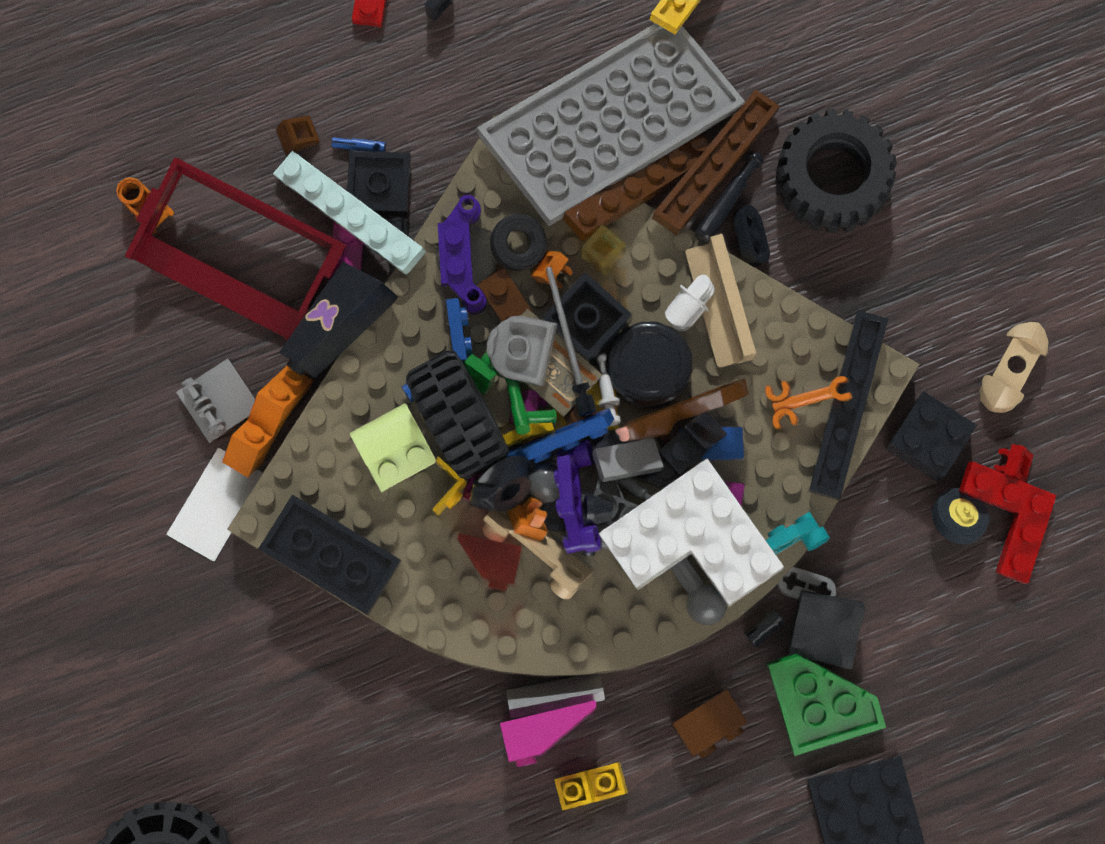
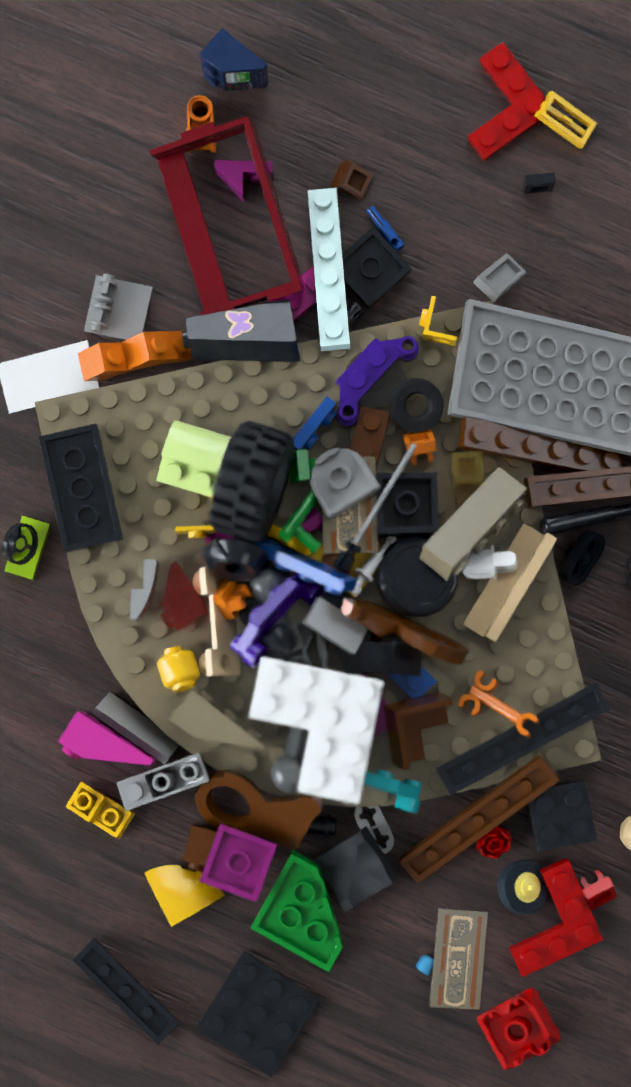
camera: 45 degrees right, 5 degrees up
(122, 135) = (232, 64): none -> dark blue slope
(205, 213) = (236, 172): none -> magenta slope
(331, 647) = (24, 546): none -> piece
(459, 588) = (141, 597): none -> light grey slope
(476, 182) = (434, 336): none -> yellow bracket
(481, 95) = (500, 277): none -> light grey tile
(544, 613) = (178, 669): none -> yellow head
(605, 630) = (207, 722): none -> dark tan slope
(617, 711) = (162, 781): none -> light grey slope
(651, 283) = (473, 523): none -> dark tan brick
(715, 782) = (181, 891): none -> yellow brick
(732, 651) = (277, 819): none -> reddish brown animal
(736, 712) = (238, 862): none -> magenta plate
(751, 478) = (407, 719): none -> reddish brown panel
(877, 498) = (479, 818): none -> reddish brown plate
(903, 505) = (494, 842): none -> red plate
(951, 646) = (425, 964): none -> dark azure hand
(969, 618) = (458, 959): none -> sticker
(1066, 623) = (519, 1028): none -> red slope

